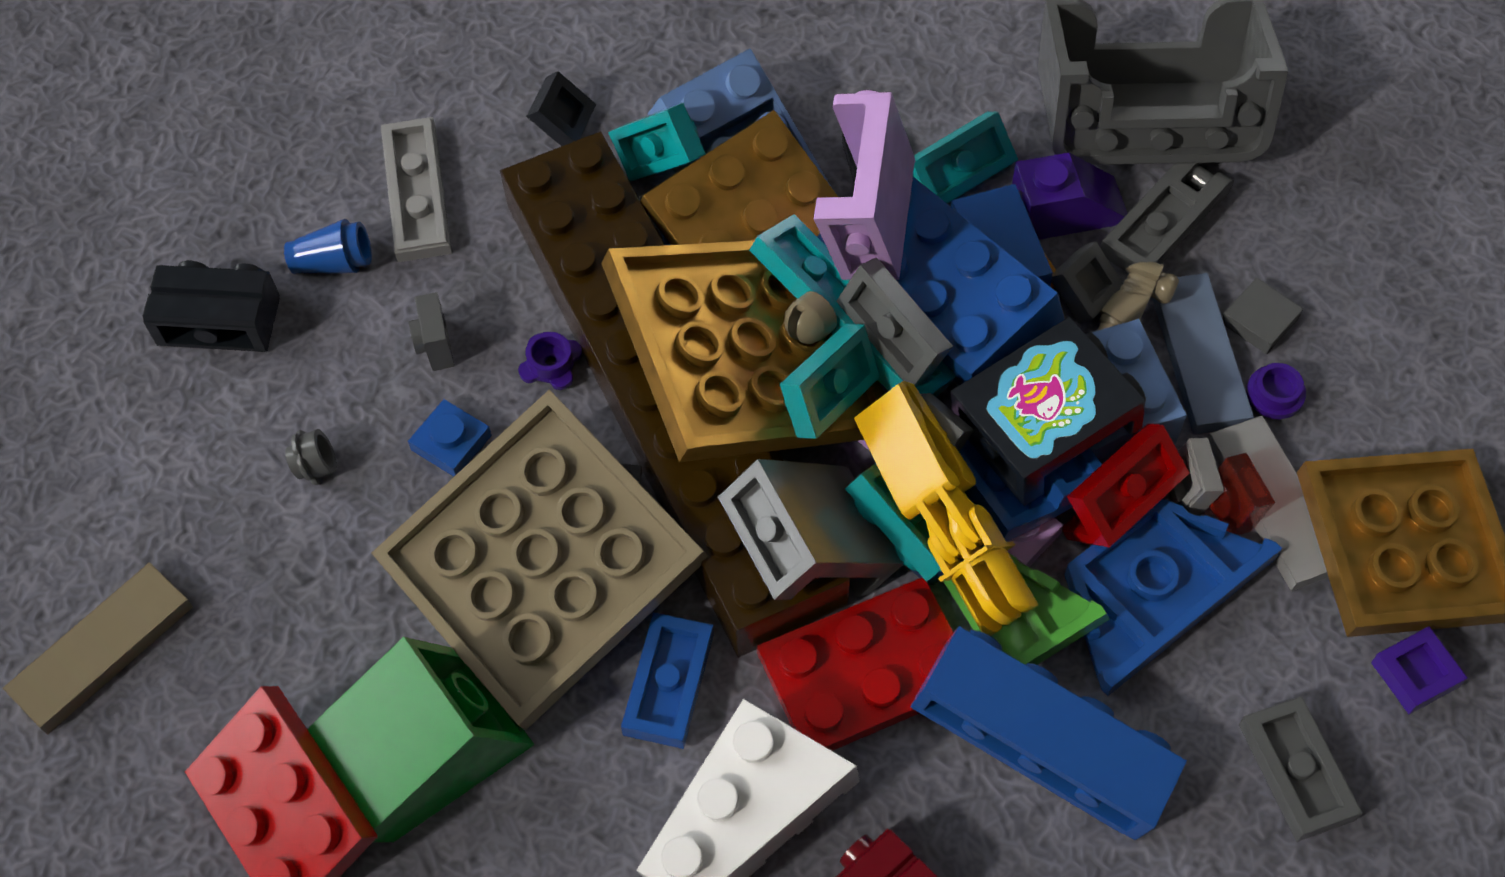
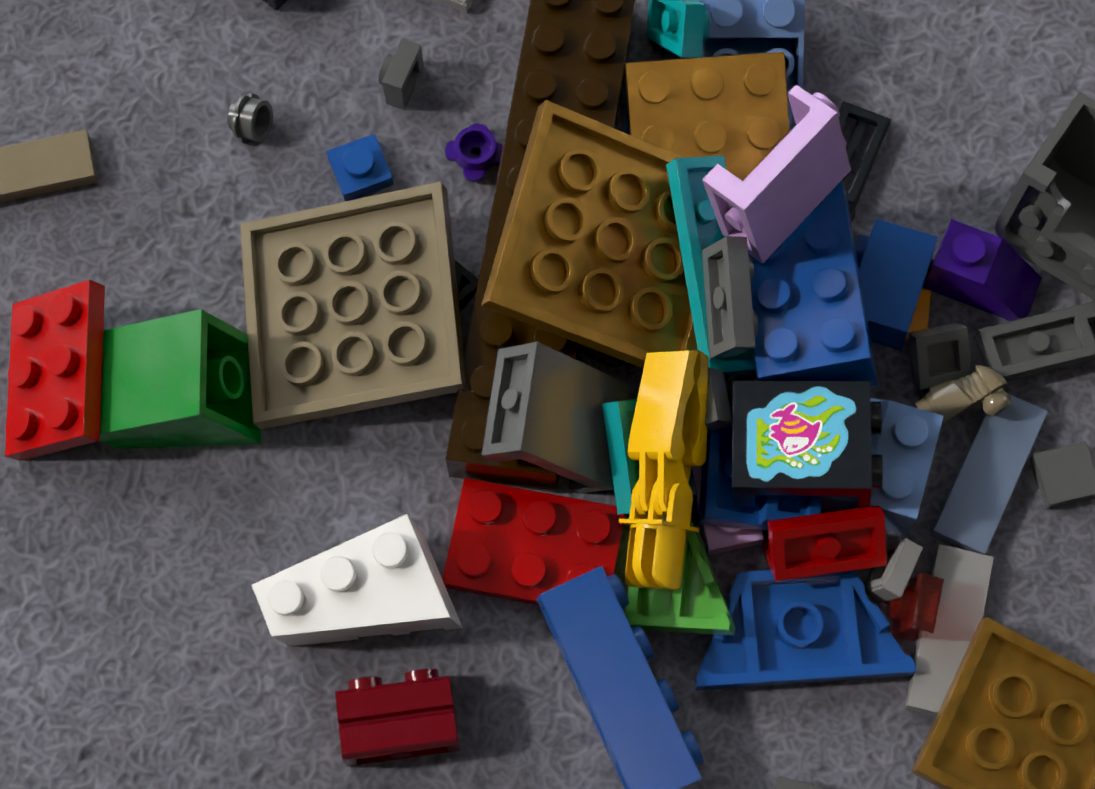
camera: 35 degrees right, 10 degrees up
(667, 680) = (382, 460): blue plate -> none
(810, 318) = (670, 251): dark tan hinge -> none
(830, 381) = (645, 313): teal plate -> none
(965, 157) = (919, 186): teal plate -> none
(1276, 391) = (1023, 545): dark purple plate -> none

